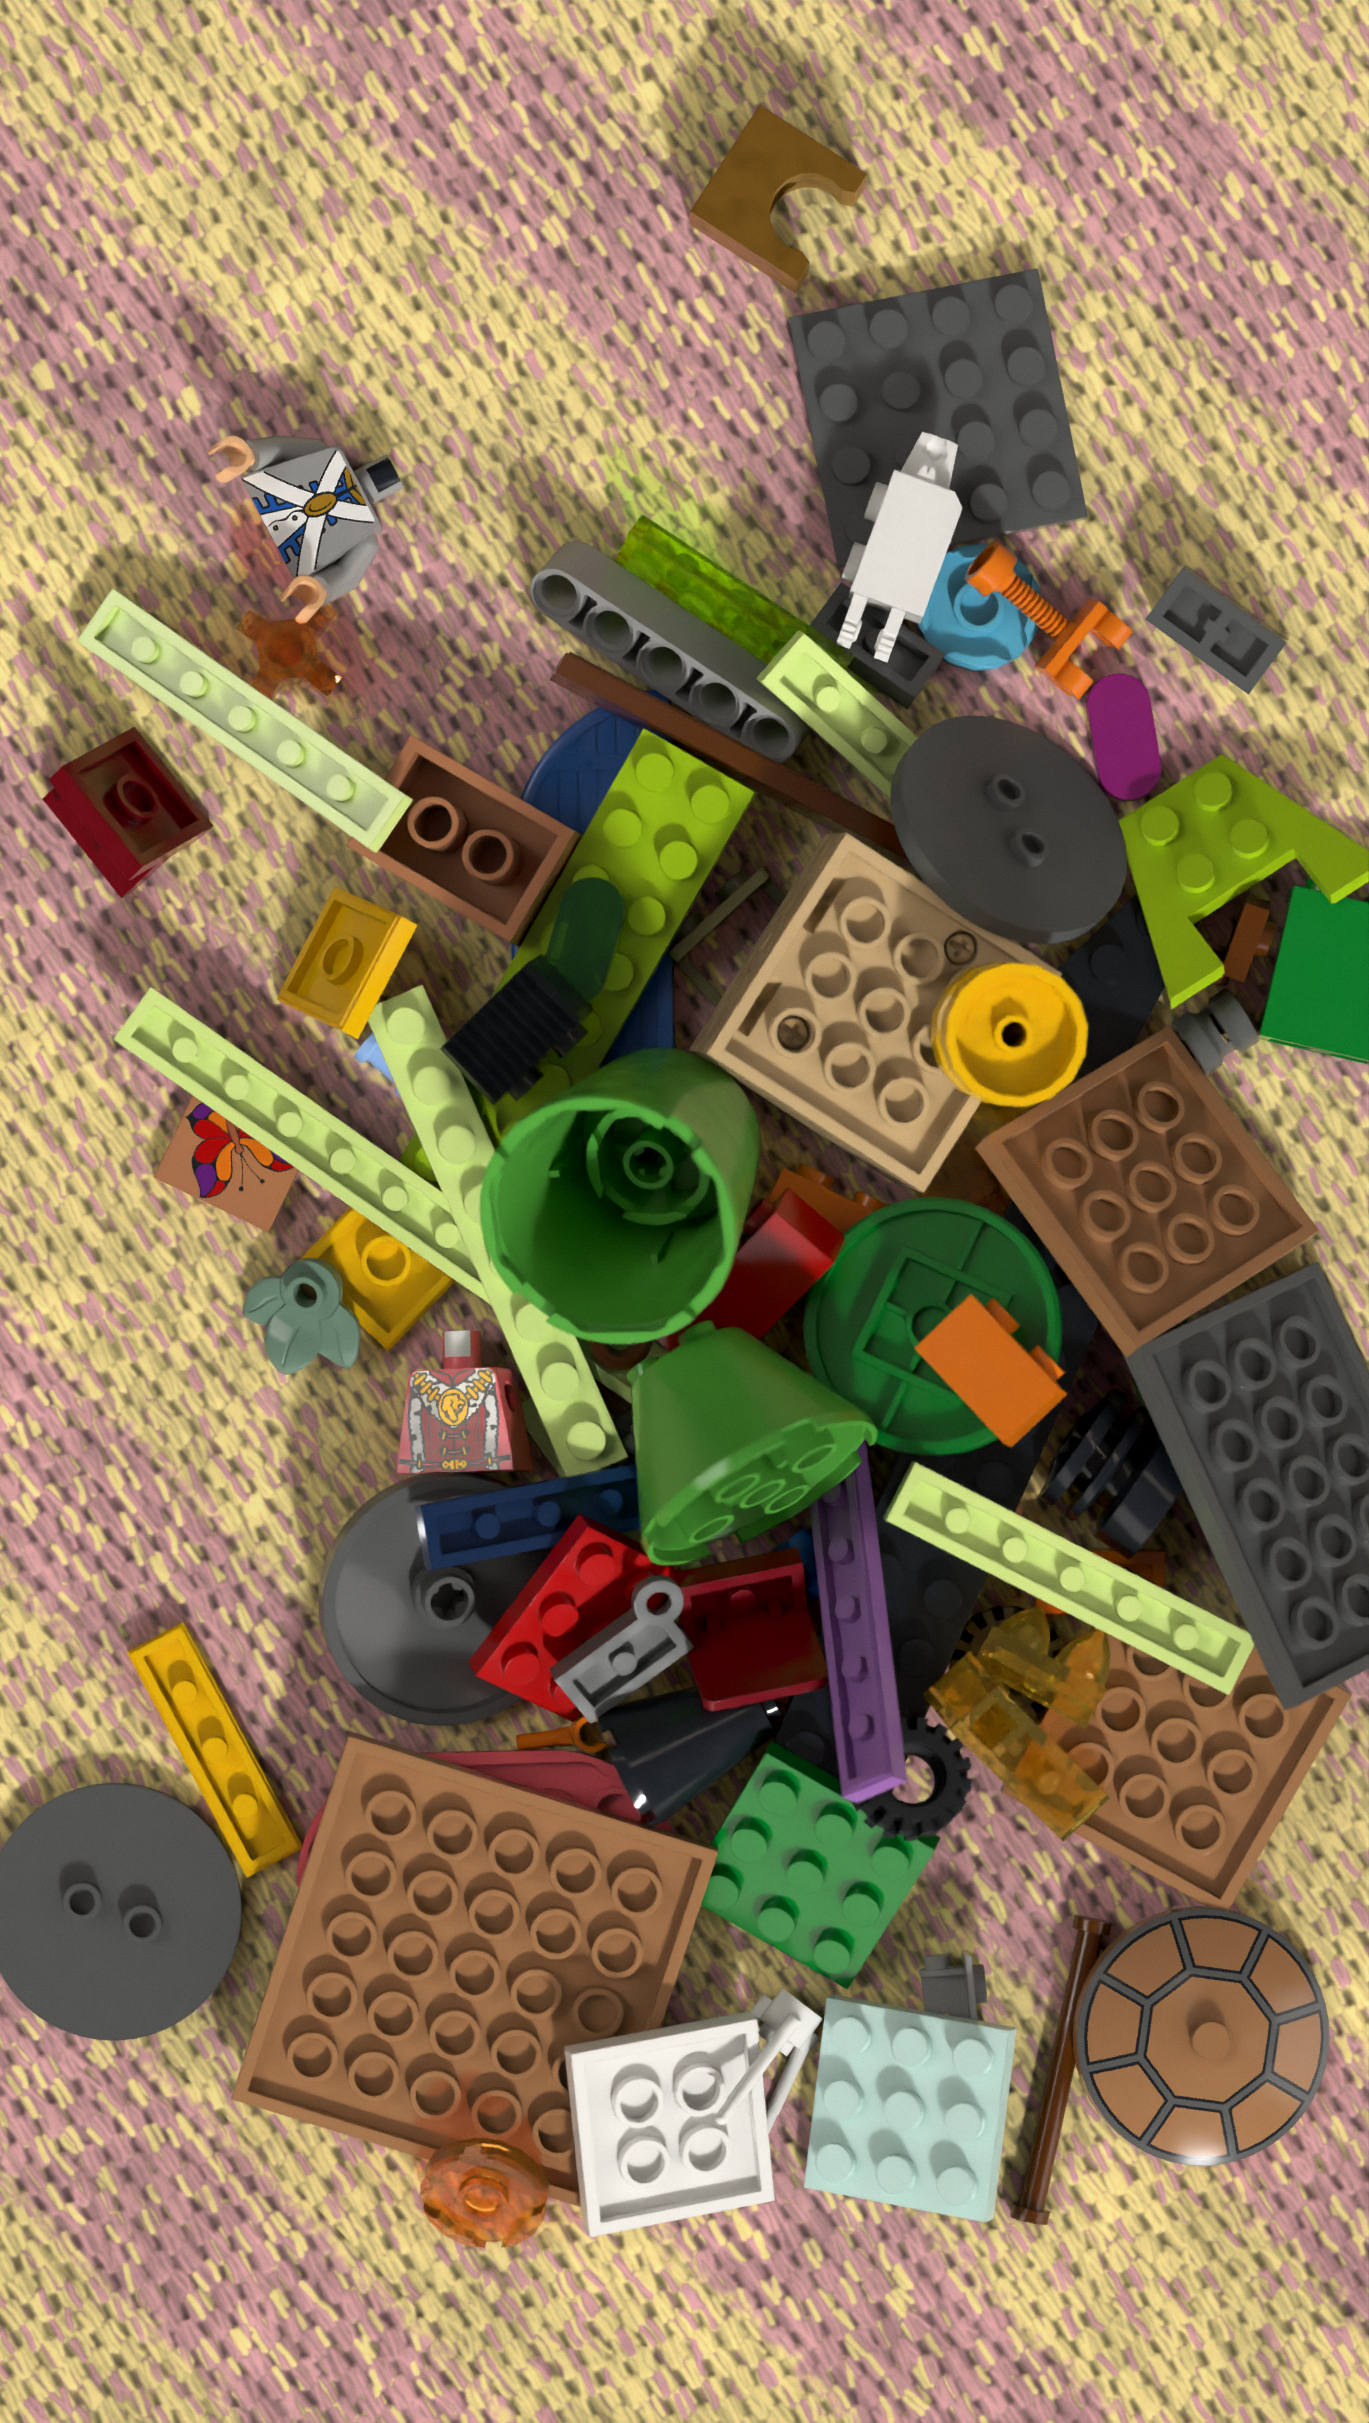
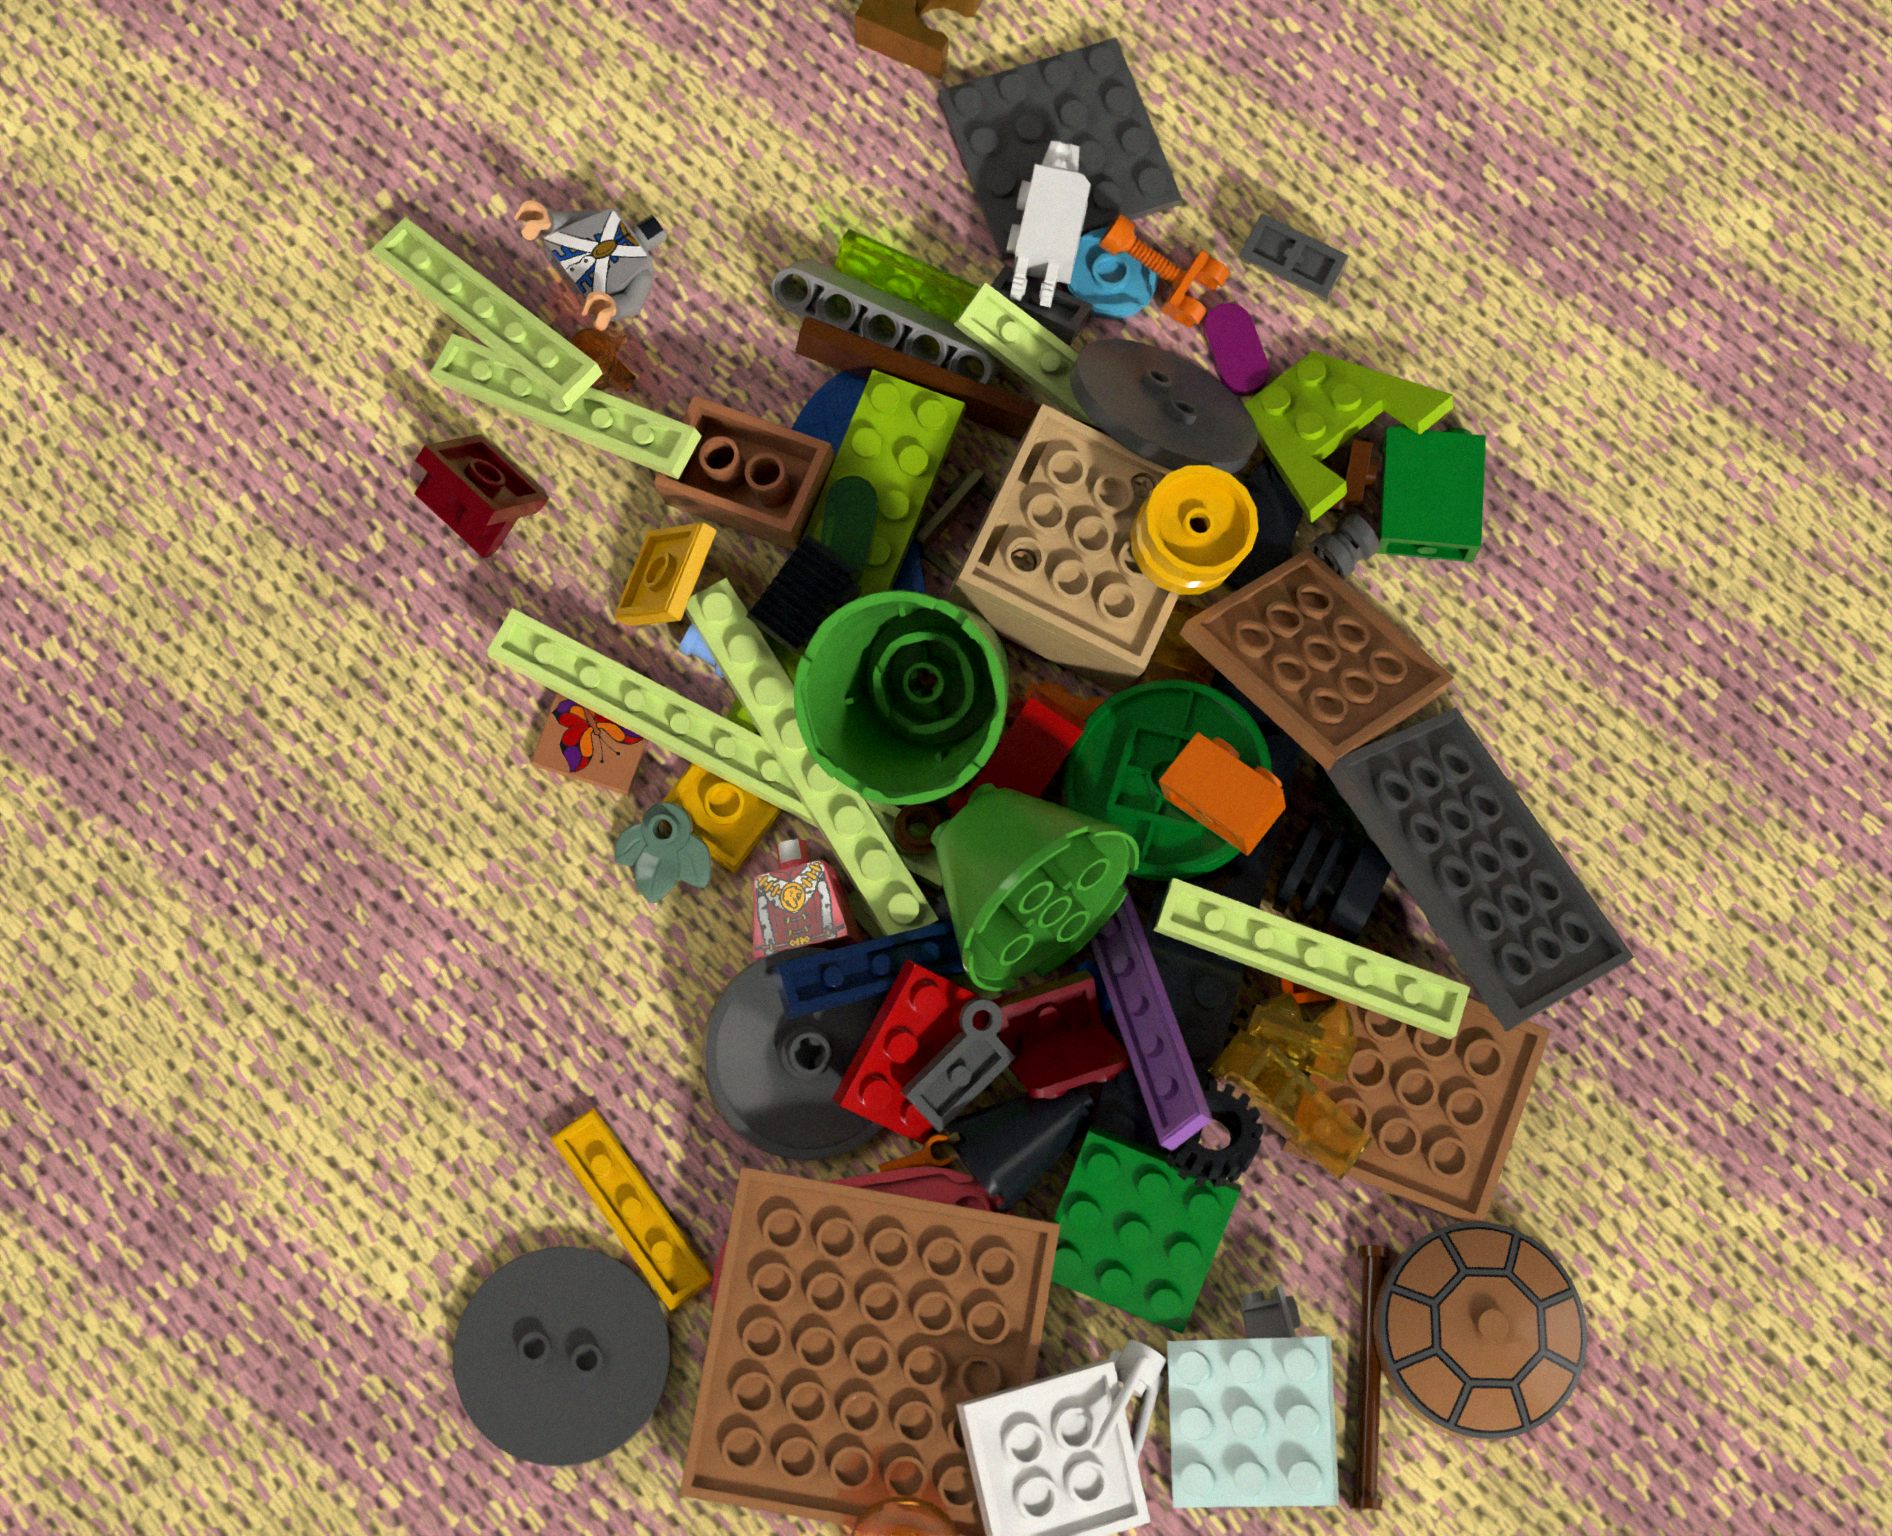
camera: 10 degrees left, 15 degrees down
(158, 575) = (487, 312): none -> yellowish green plate

